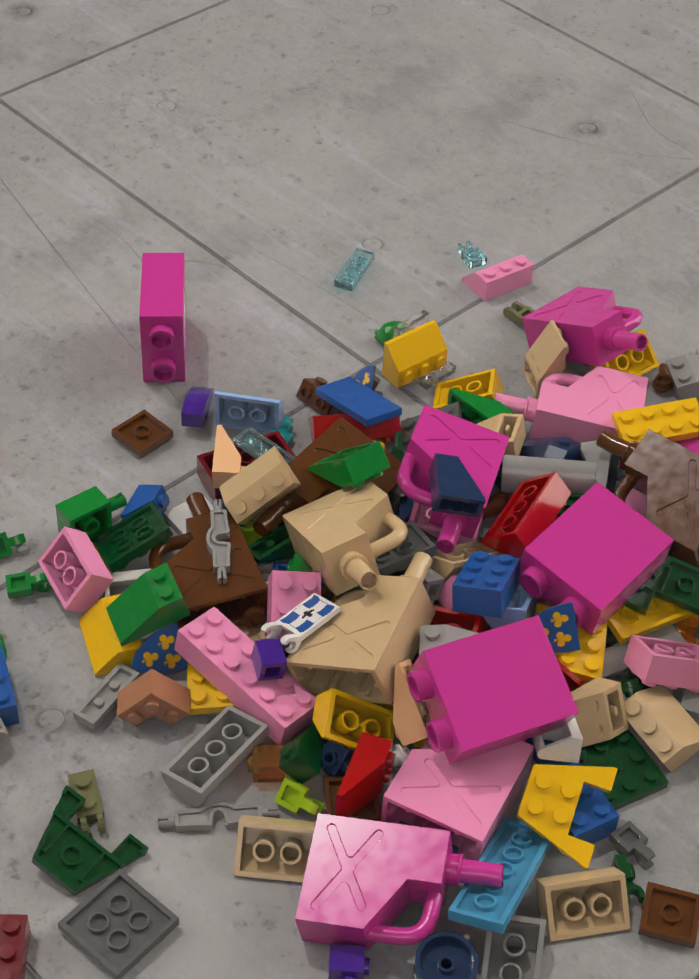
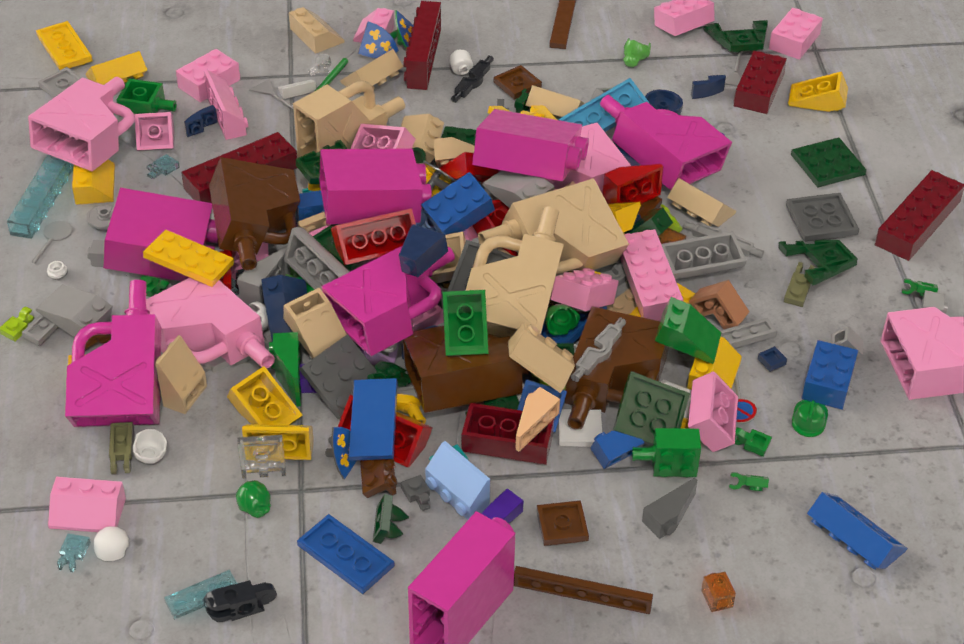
camera: 140 degrees left, 0 degrees up
(57, 618) = (745, 409): none -> piece
(59, 682) = (772, 359): none -> dark blue plate
(61, 479) = (666, 513): none -> dark grey slope
(84, 394) = (583, 590): none -> reddish brown tile
(257, 444) = (494, 410): clear light blue plate -> none
(268, 659) = (638, 250): dark purple brick -> none
(286, 370) = (384, 513): none -> dark green tile
(288, 340) = (345, 553): none -> blue tile
(290, 402) = (417, 490): none -> dark grey plate
(302, 621) = (593, 255): white flag -> none
(324, 273) = (238, 600): none -> black piece
(453, 267) = (111, 543): none -> white hair
(507, 324) = (149, 446): none -> white hair

